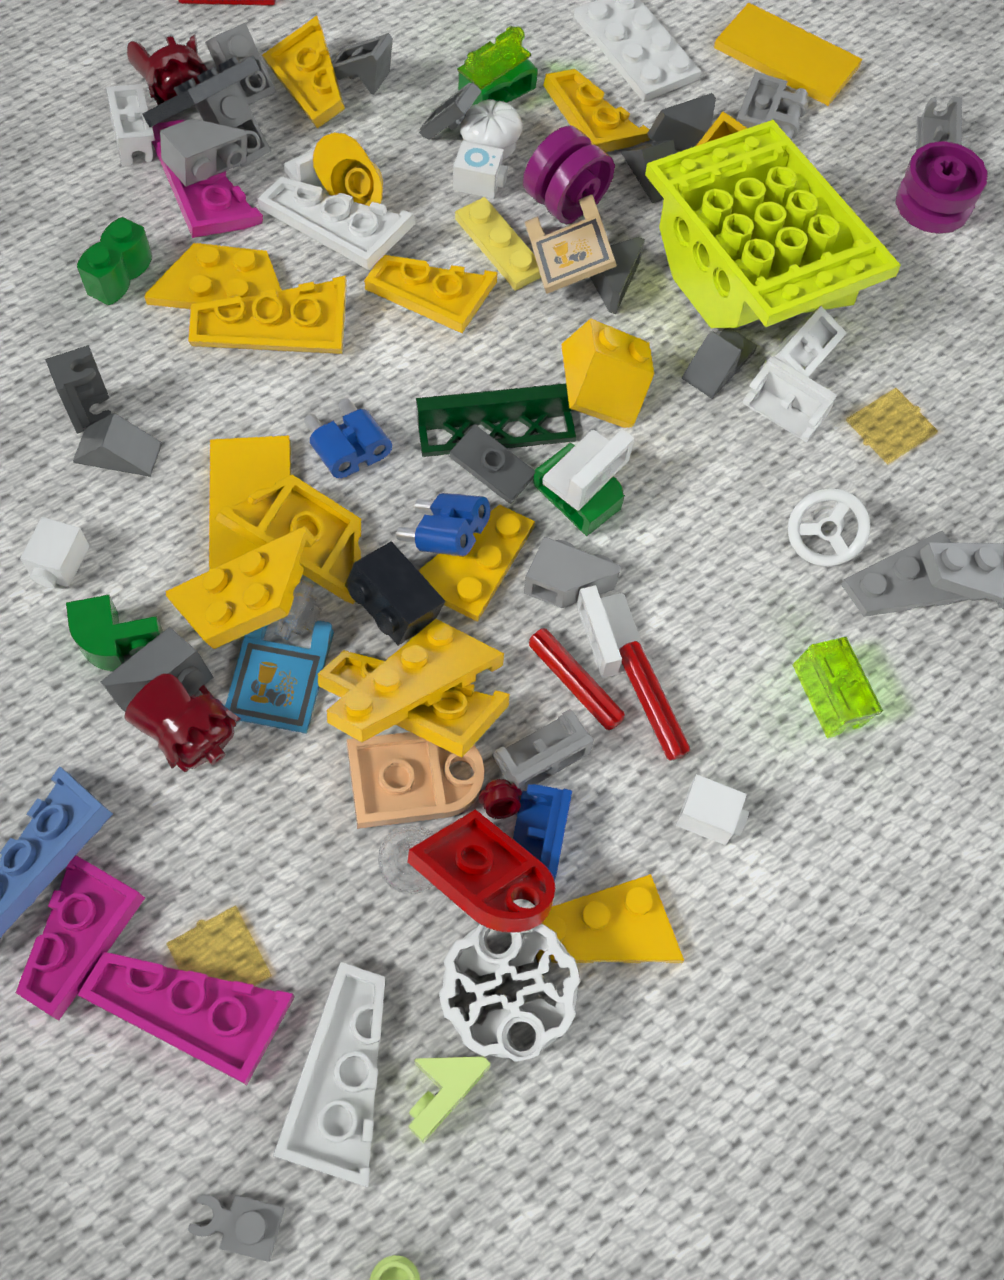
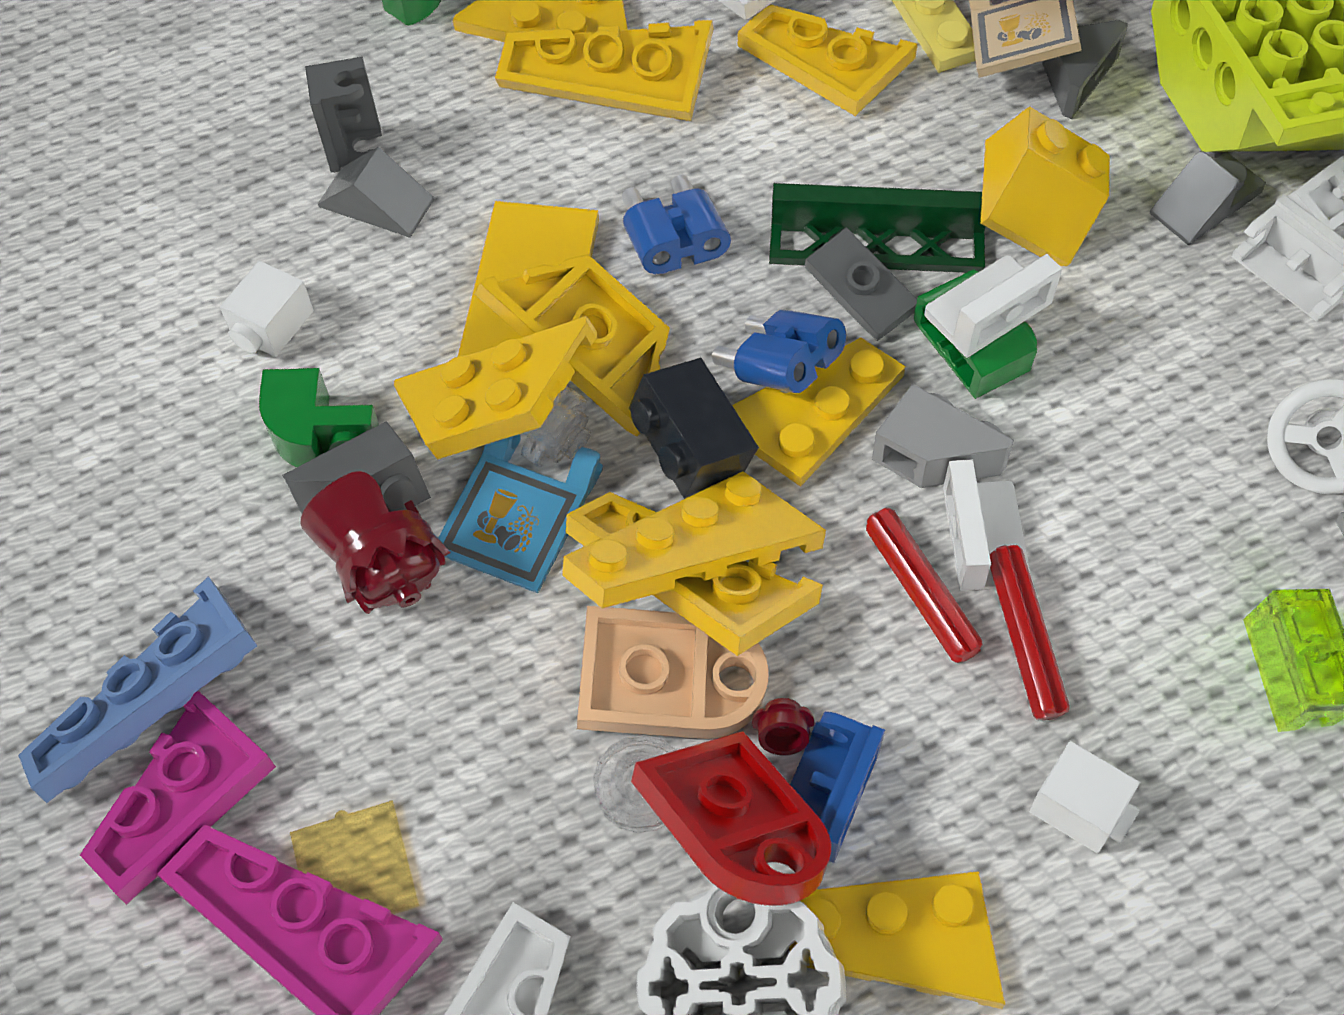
camera: 20 degrees right, 5 degrees down
(544, 751) = (859, 674): light grey hinge -> none

